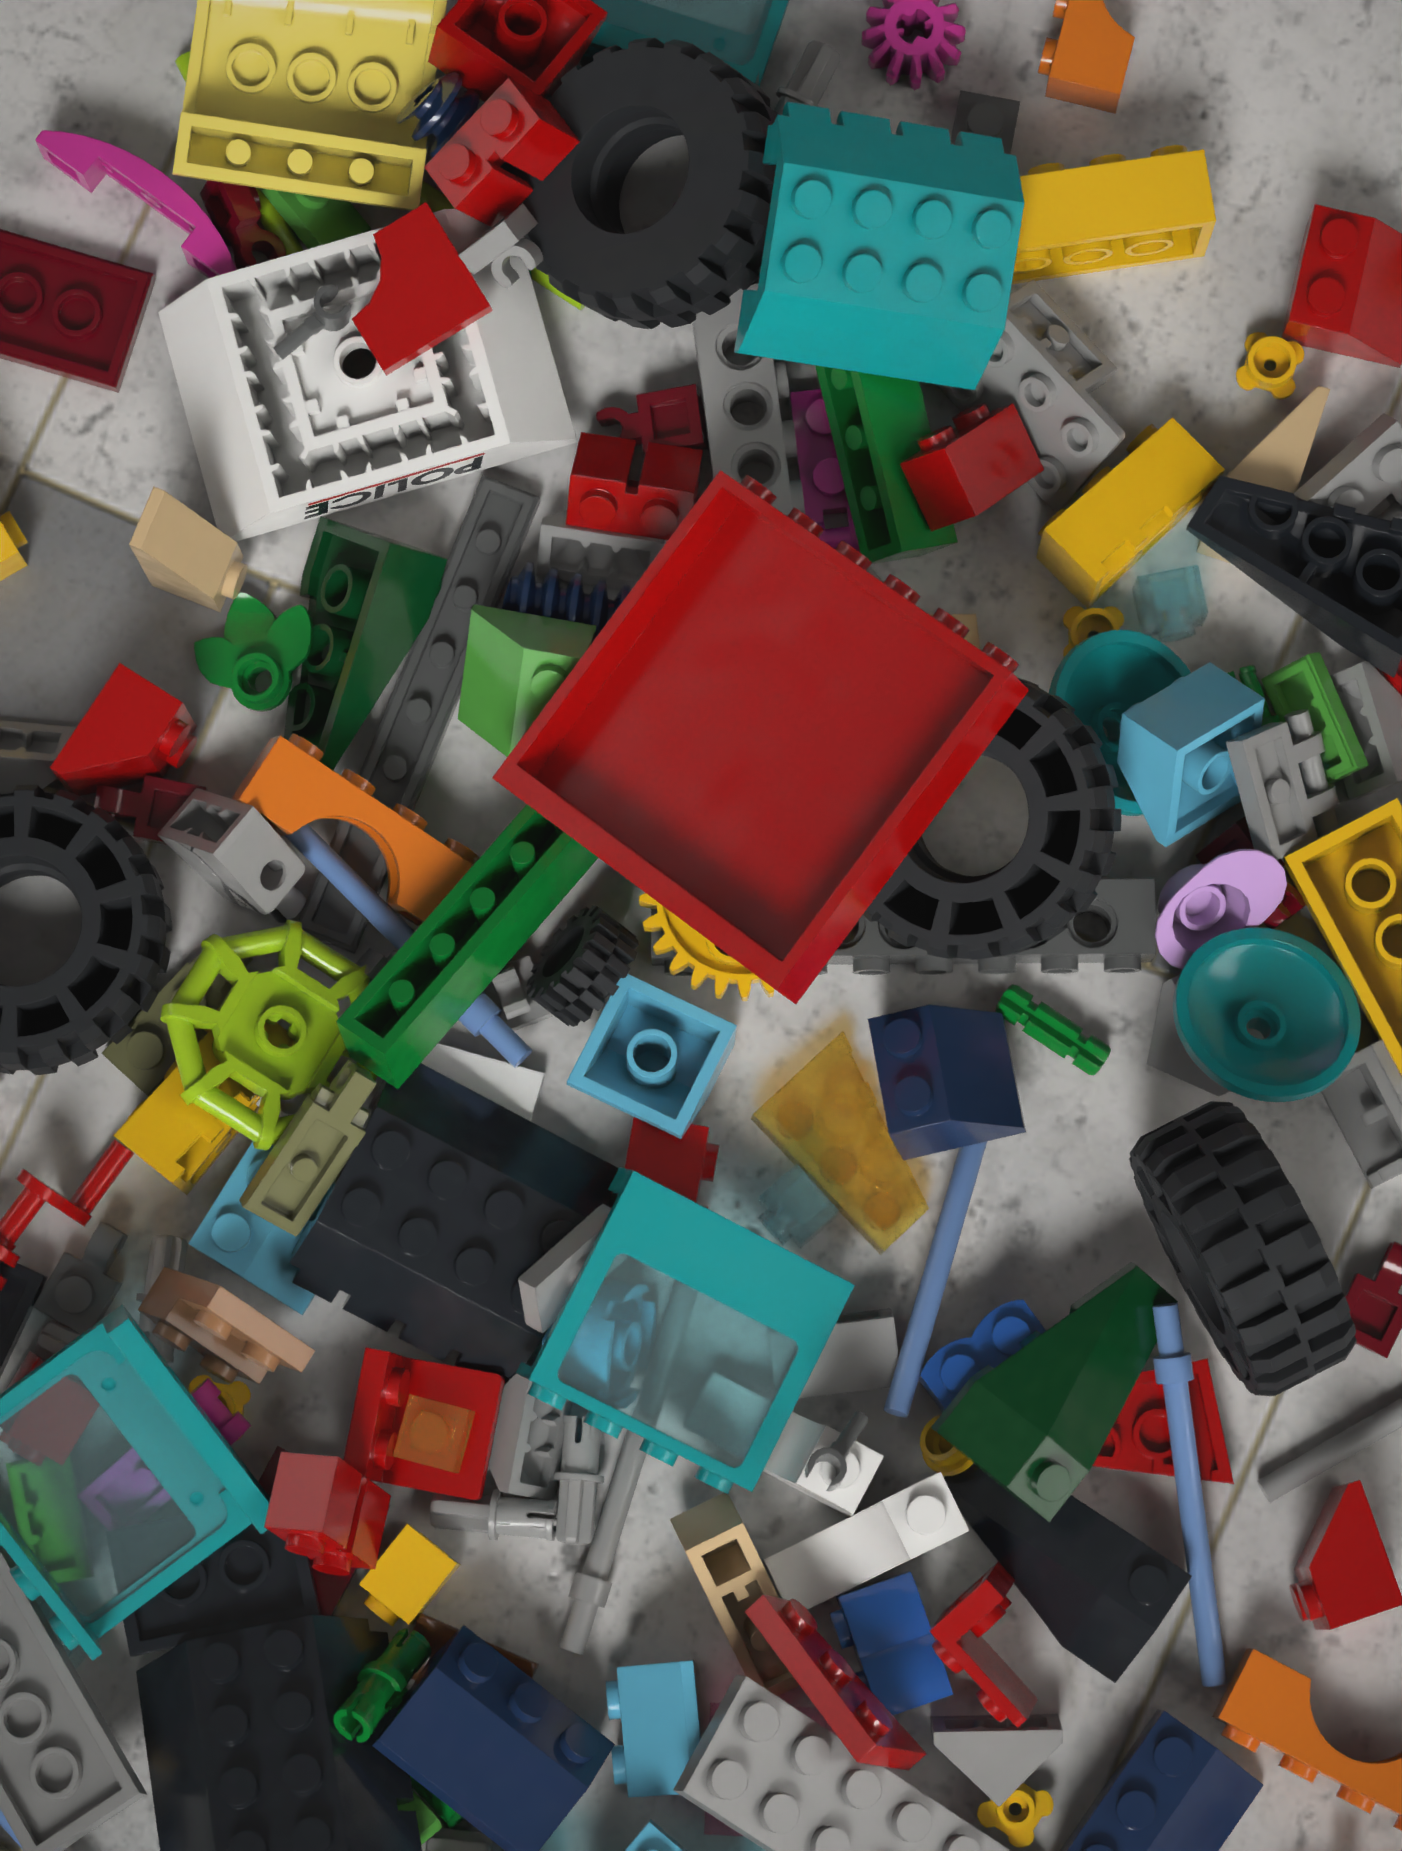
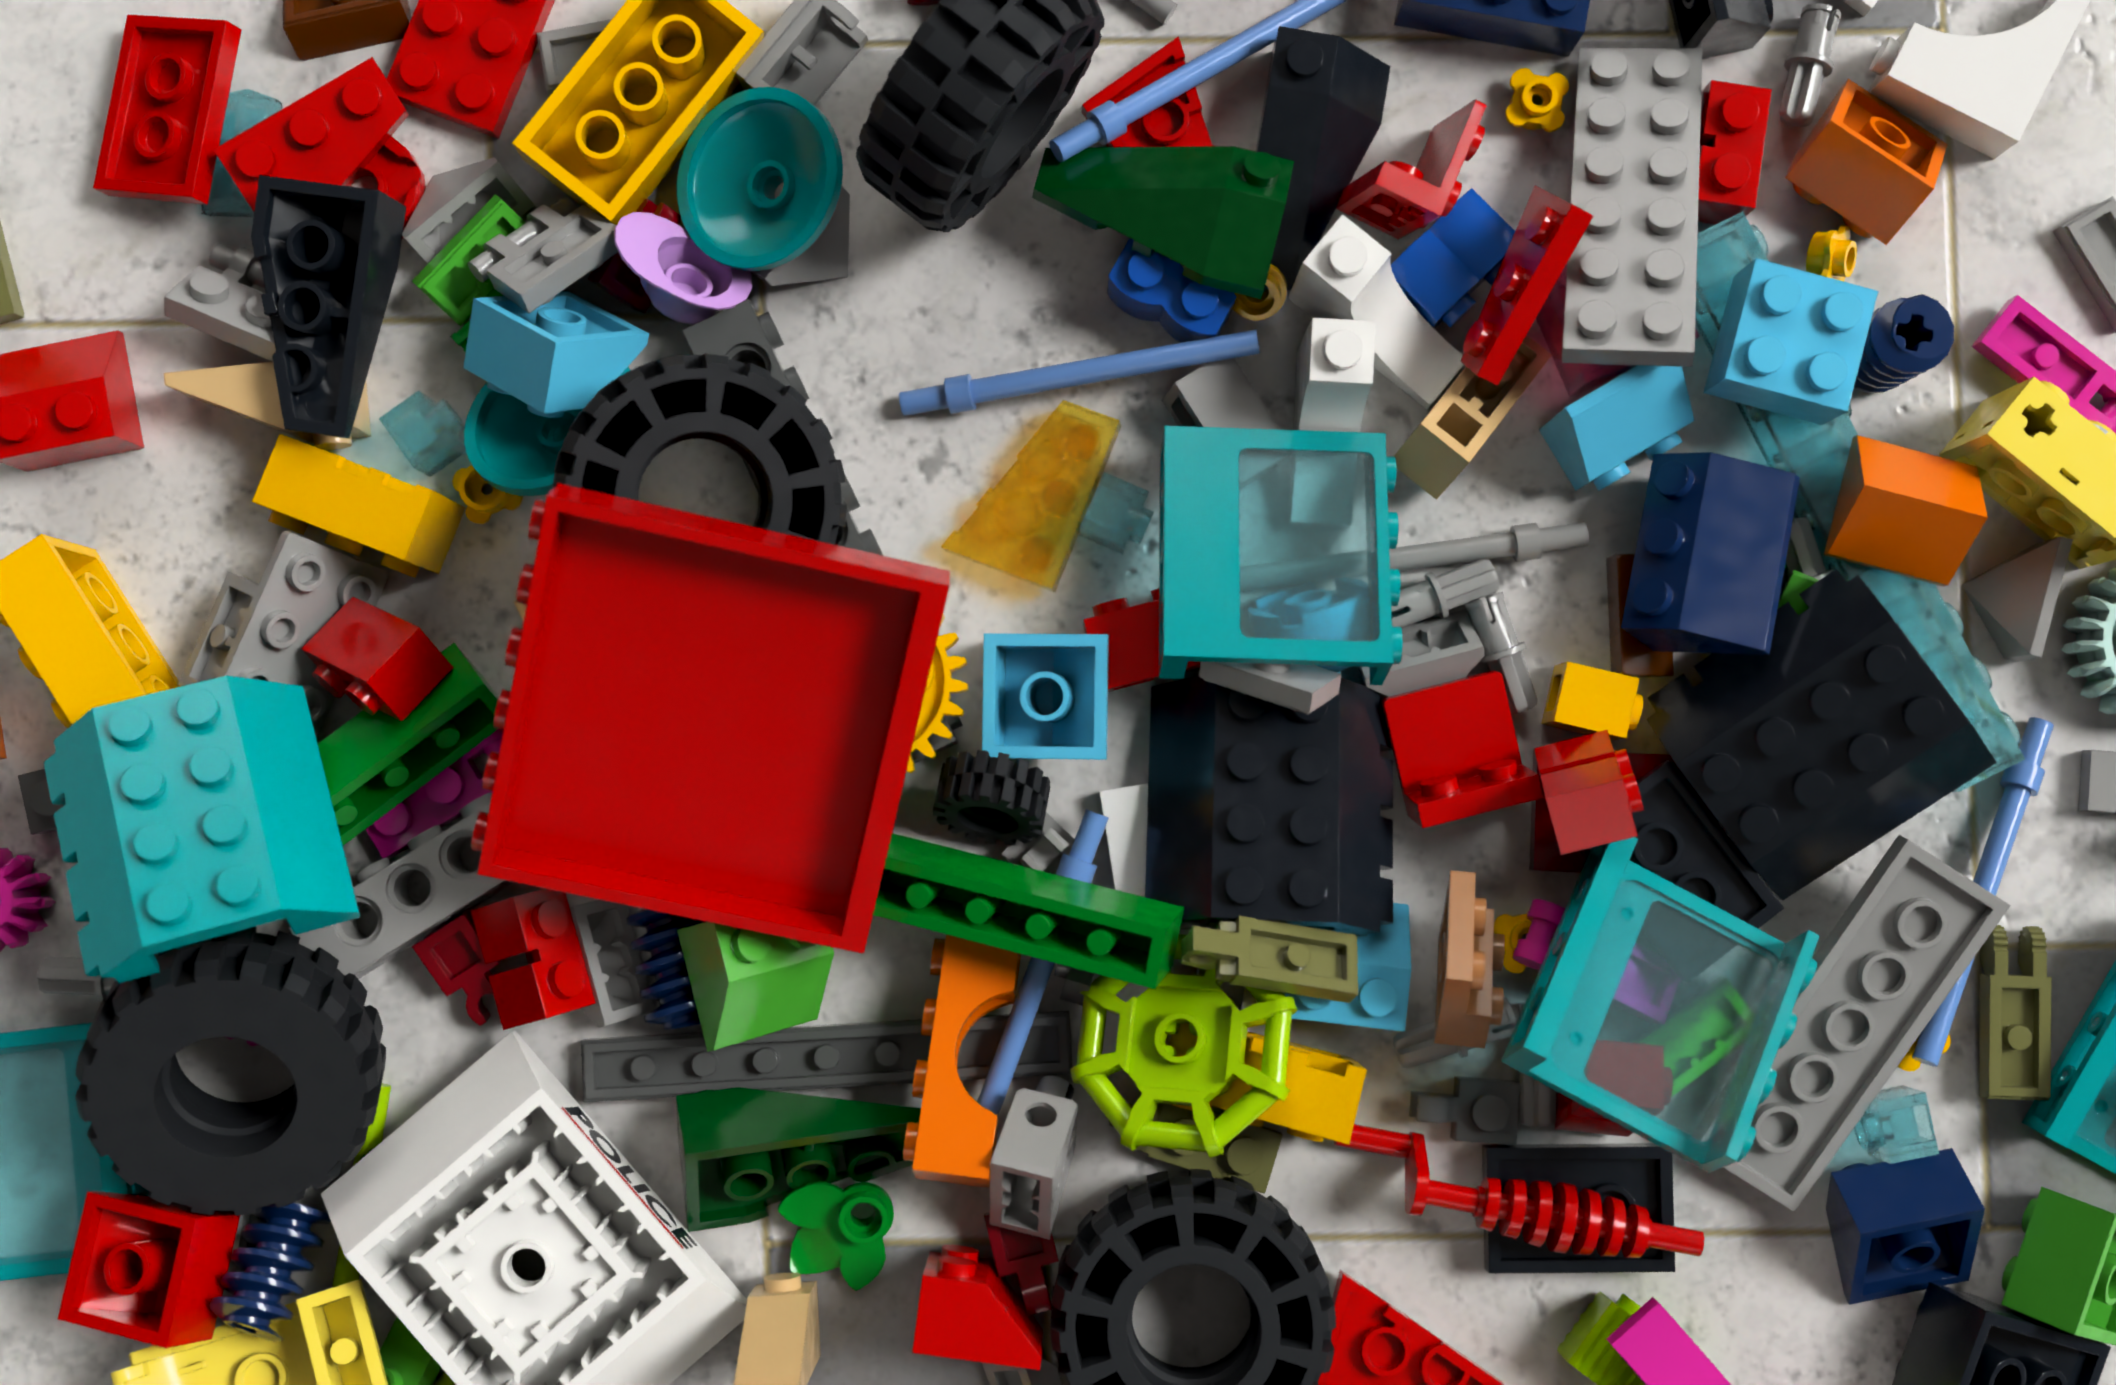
camera: 115 degrees left, 5 degrees up
(315, 322) = (505, 1324): dark grey hand -> none
(382, 1685) = (1707, 674): green pin -> none
(420, 293) = (432, 1239): red tile -> none
(434, 1433) = (1462, 735): plate -> none
(500, 243) = (353, 1186): light grey tile -> none
(508, 127) = (236, 1234): red piece -> none
(839, 1449) = (1332, 354): dark grey hand -> none
(945, 1078) = (943, 432): dark blue slope -> none
(997, 1753) = (1509, 136): light grey slope -> none
(1053, 1029) = (855, 367): green axle -> none
(1264, 348) = (152, 439): yellow plate -> none

